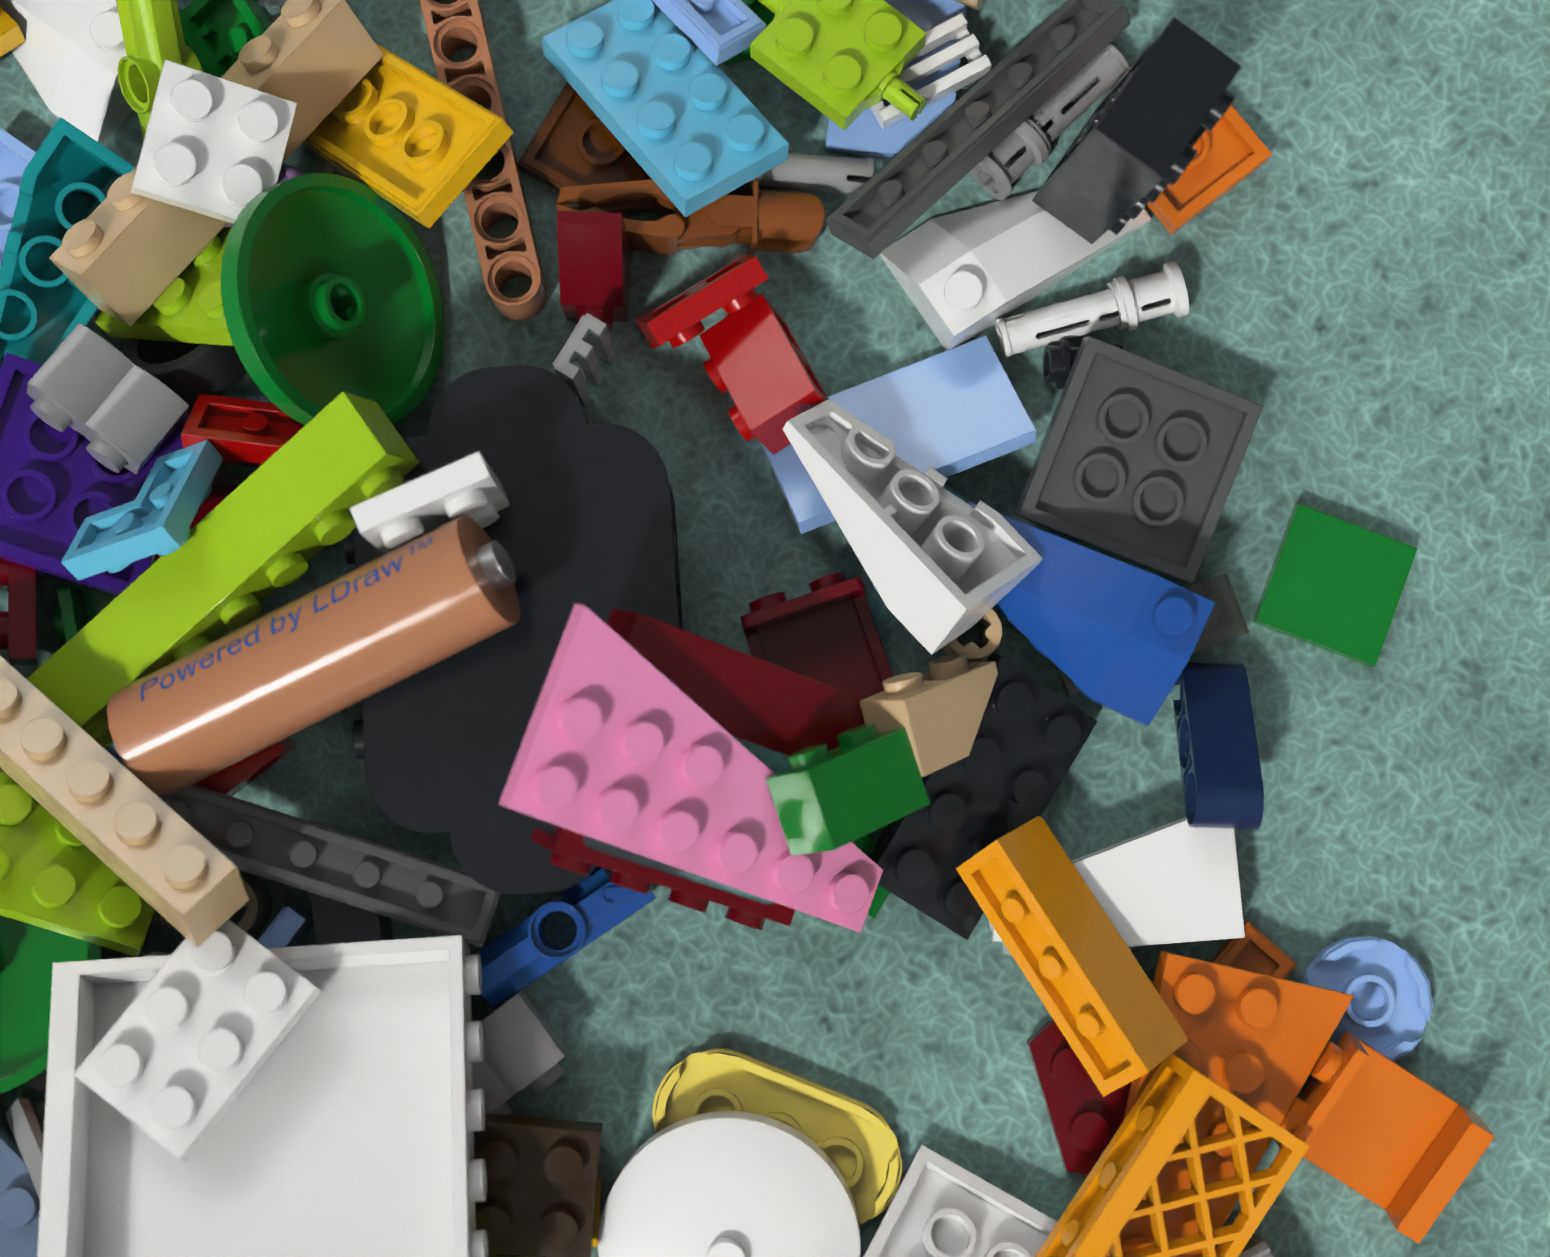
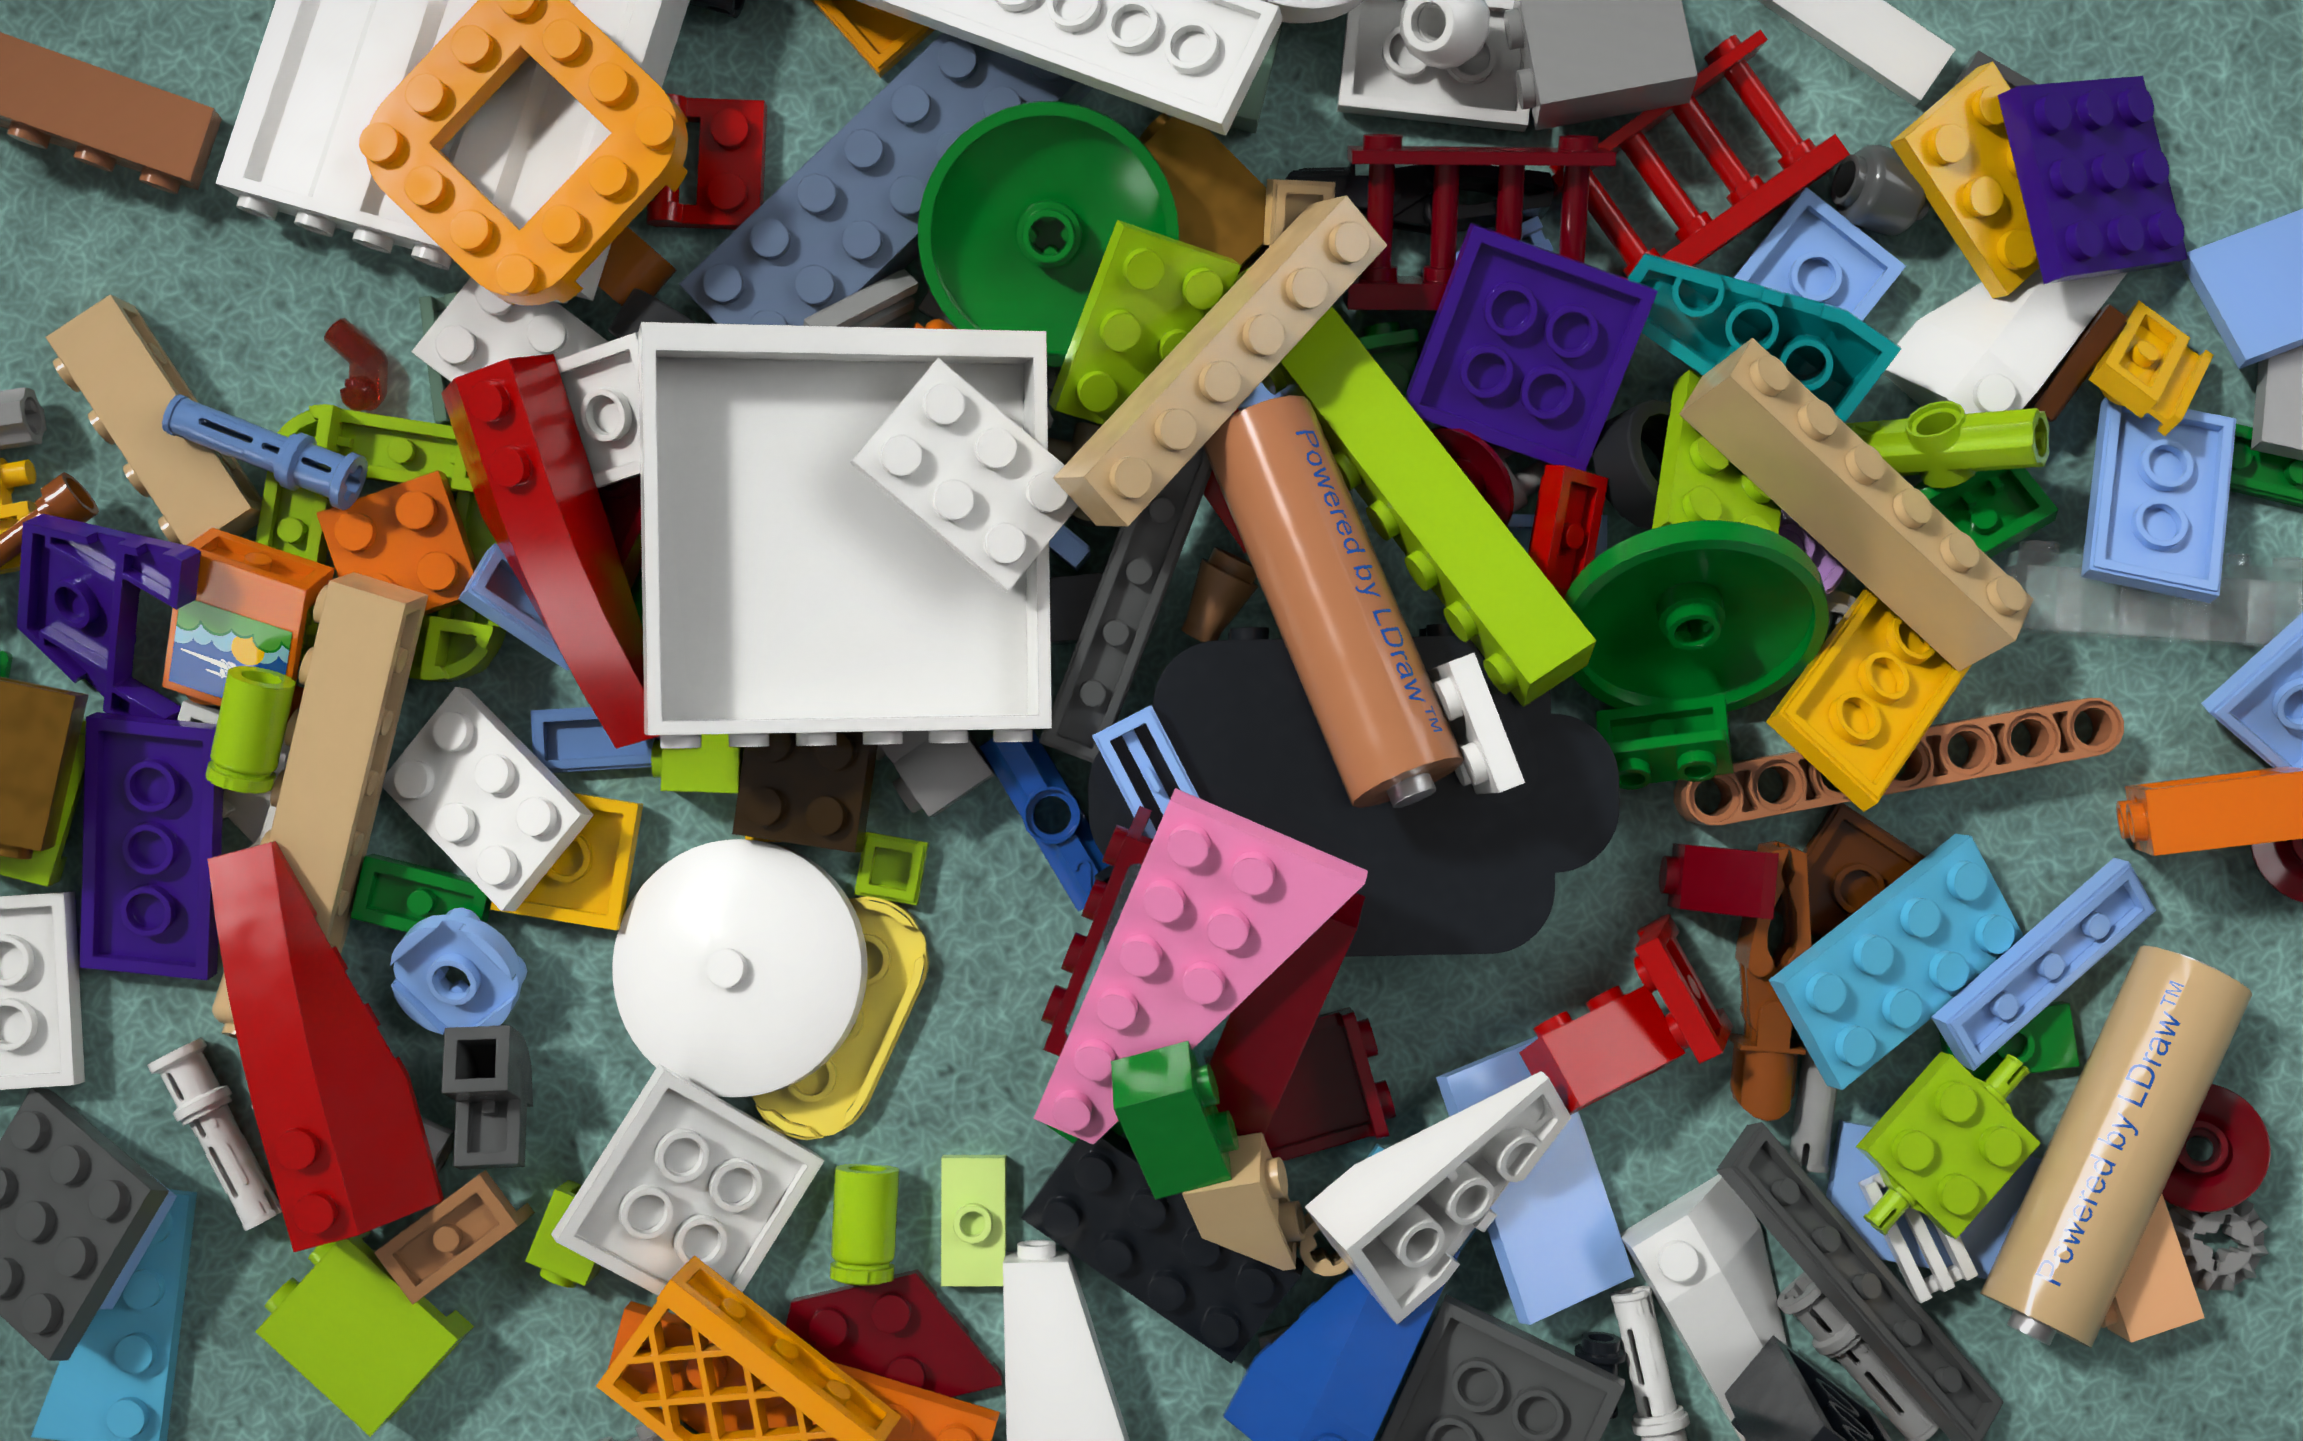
camera: 90 degrees right, 5 degrees up
(105, 400) = (1602, 391): light grey brick -> none
(152, 522) = (1475, 439): medium azure plate -> none
(211, 143) = (1862, 508): white plate -> none
(329, 772) = (1218, 594): none -> medium nougat cone
(456, 859) = (1126, 729): none -> light blue tile
(460, 320) = (1669, 741): none -> green bracket
(587, 346) = (1628, 866): light grey tile -> none
(623, 1091) = (891, 868): none -> lime tile
(969, 989) = (973, 1219): none -> yellowish green plate
(982, 1099) = (864, 1224): none -> lime piece
(1072, 955) = (999, 1327): light orange panel -> none

